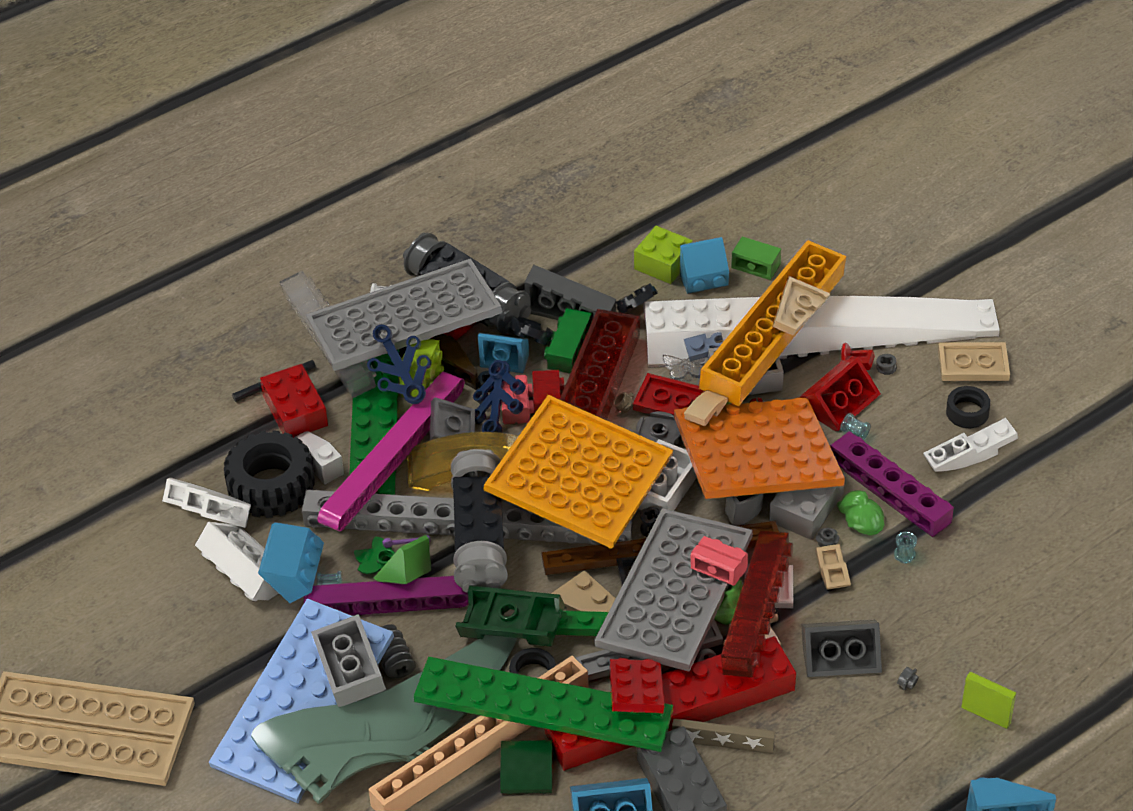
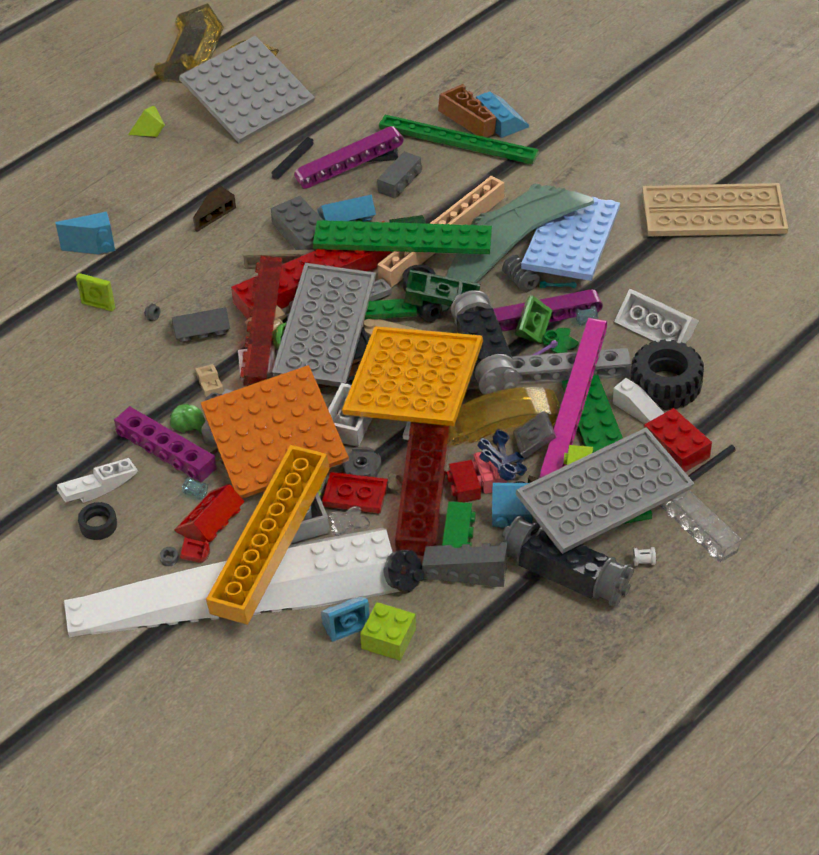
camera: 170 degrees right, 0 degrees up
(206, 502) = (715, 354): white slope -> none
(291, 560) = (618, 306): dark azure slope -> none
(348, 660) = (542, 228): light grey brick -> none
(401, 367) = (572, 436): dark blue plant -> none
(524, 327) = (482, 521): black plate -> none
(636, 686) = (340, 245): red plate -> none
(698, 345) = (335, 527): sand blue plate -> none
(705, 407) = (322, 440): tan slope -> none
(719, 560) = (292, 330): coral brick -> none
(756, 258) = (297, 643): bright green brick -> none
(798, 305) = (248, 524): tan wing -> none
(911, 542) = (148, 393): clear light blue bush -> none
(973, 361) = (89, 565): tan plate -> none

